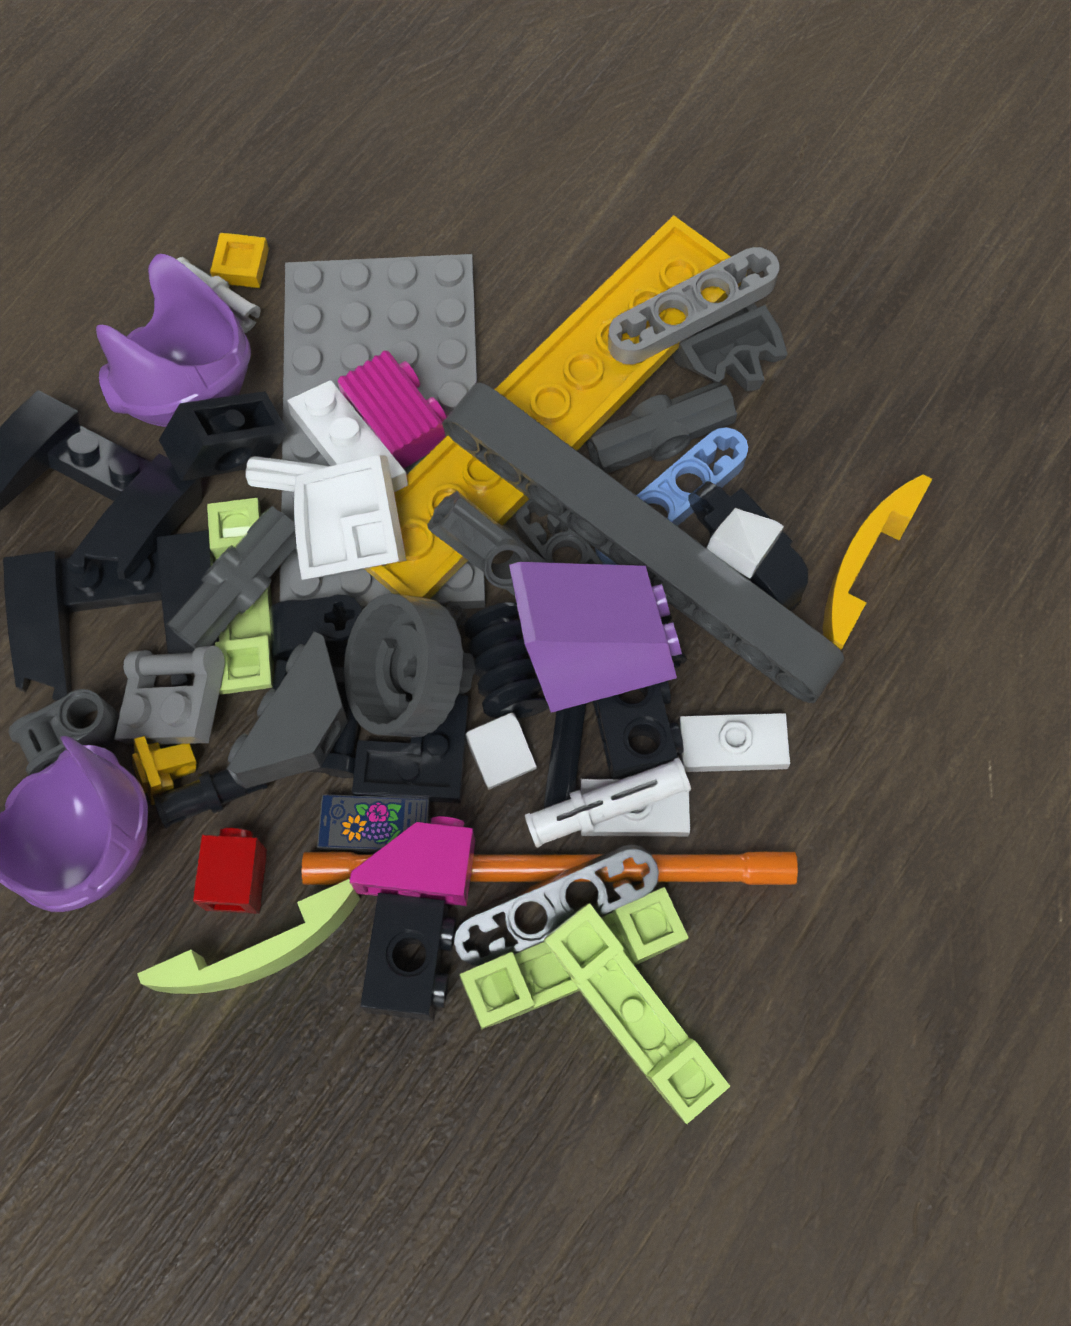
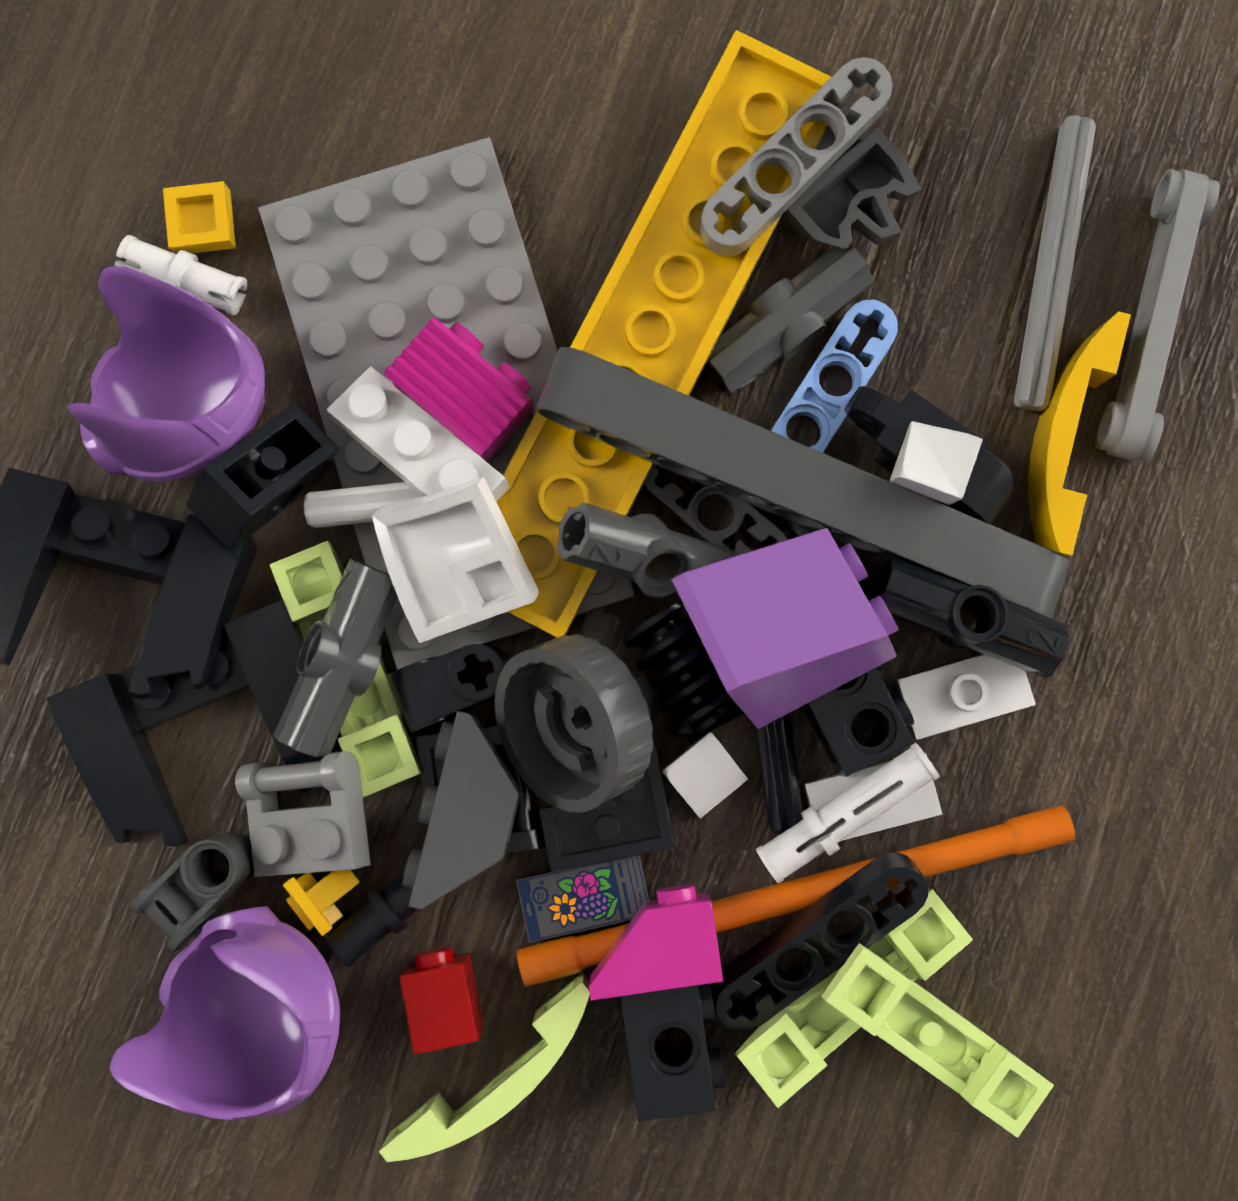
camera: 15 degrees left, 15 degrees up
(774, 693) = (1003, 628): none -> black piece
(884, 440) = (1055, 264): none -> light grey axle
(918, 567) = (1183, 206): none -> light grey piece

